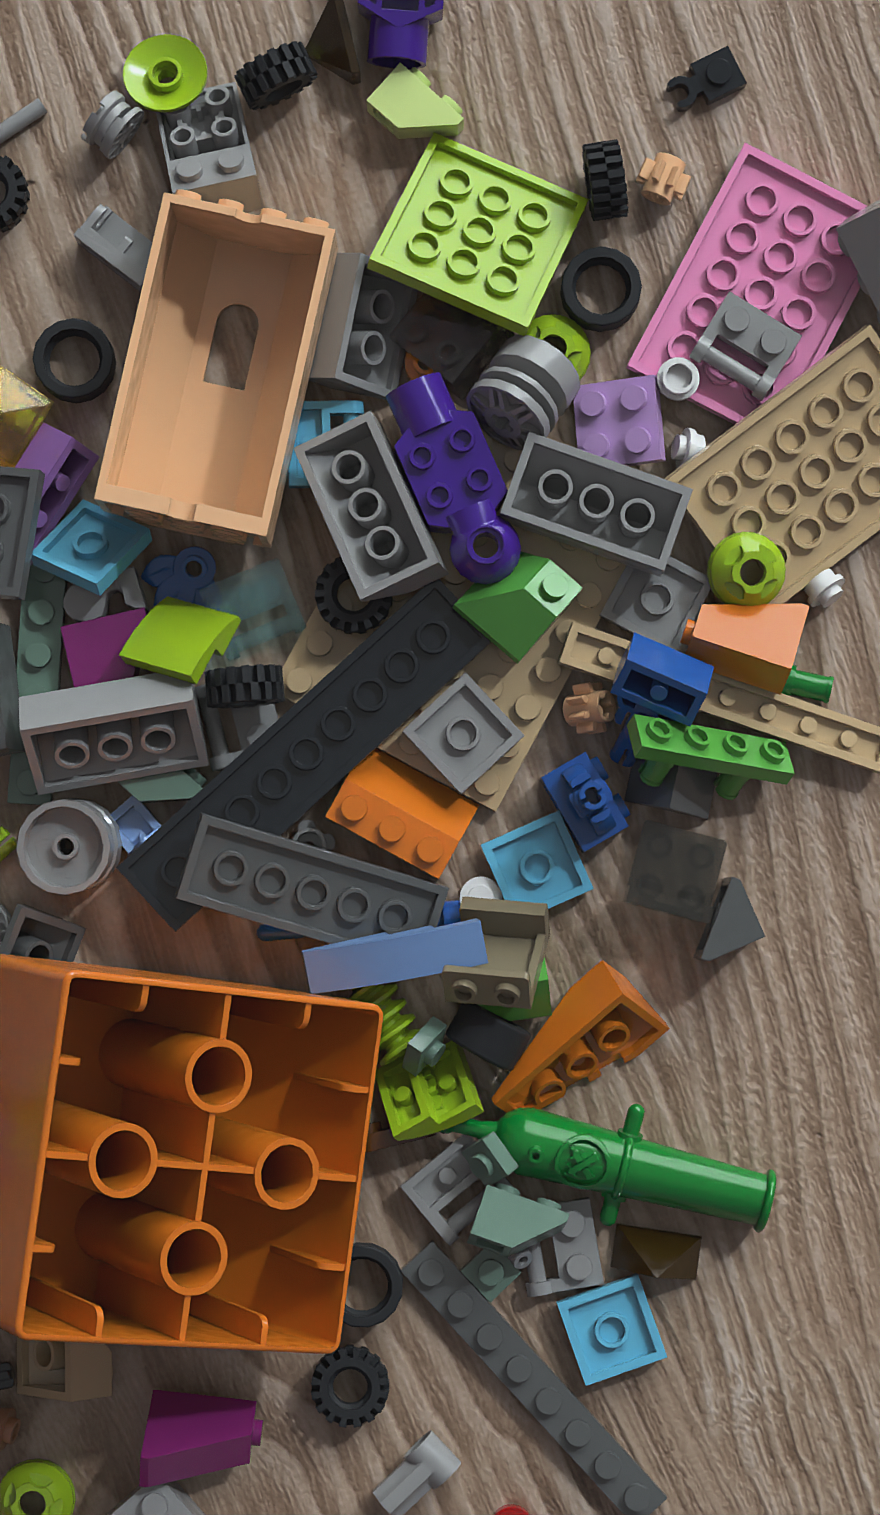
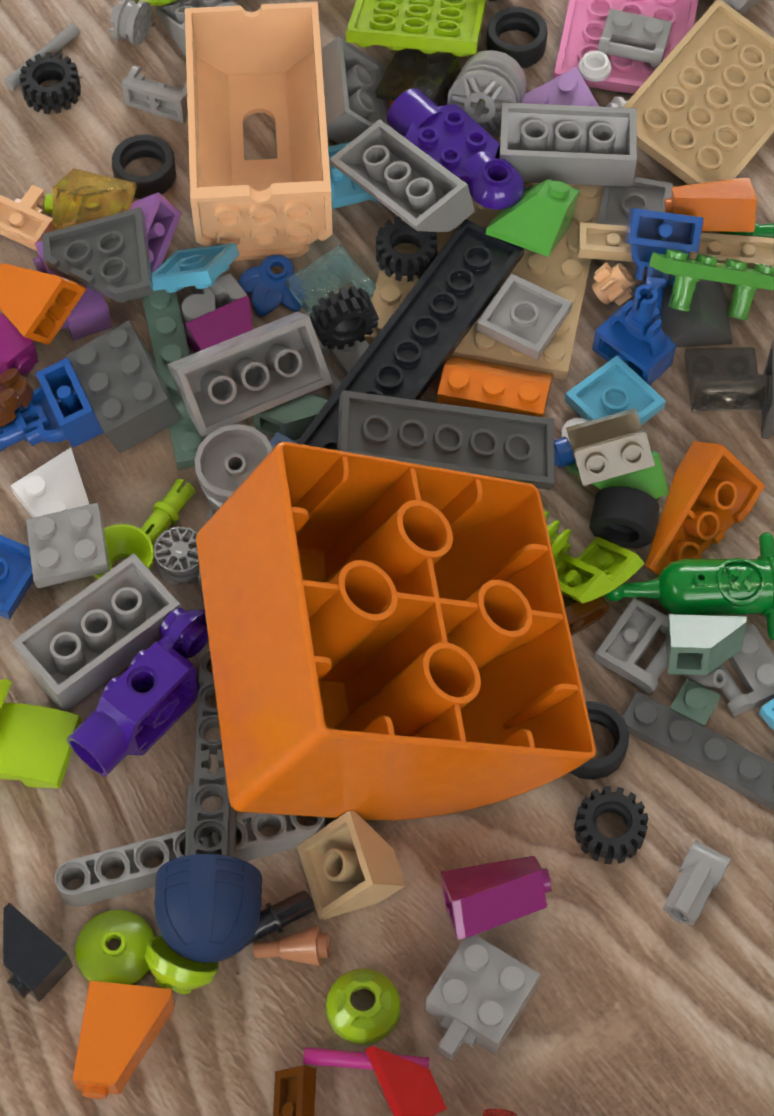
camera: 15 degrees left, 25 degrees down
(179, 639) = (282, 301): lime slope -> none
(393, 956) = (542, 457): medium blue slope -> none
(425, 1047) = (577, 535): sand green plate -> none
(489, 1159) = (661, 600): sand green plate -> none
(725, 567) = (684, 170): lime piece -> none
(824, 588) = (756, 170): white plate -> none

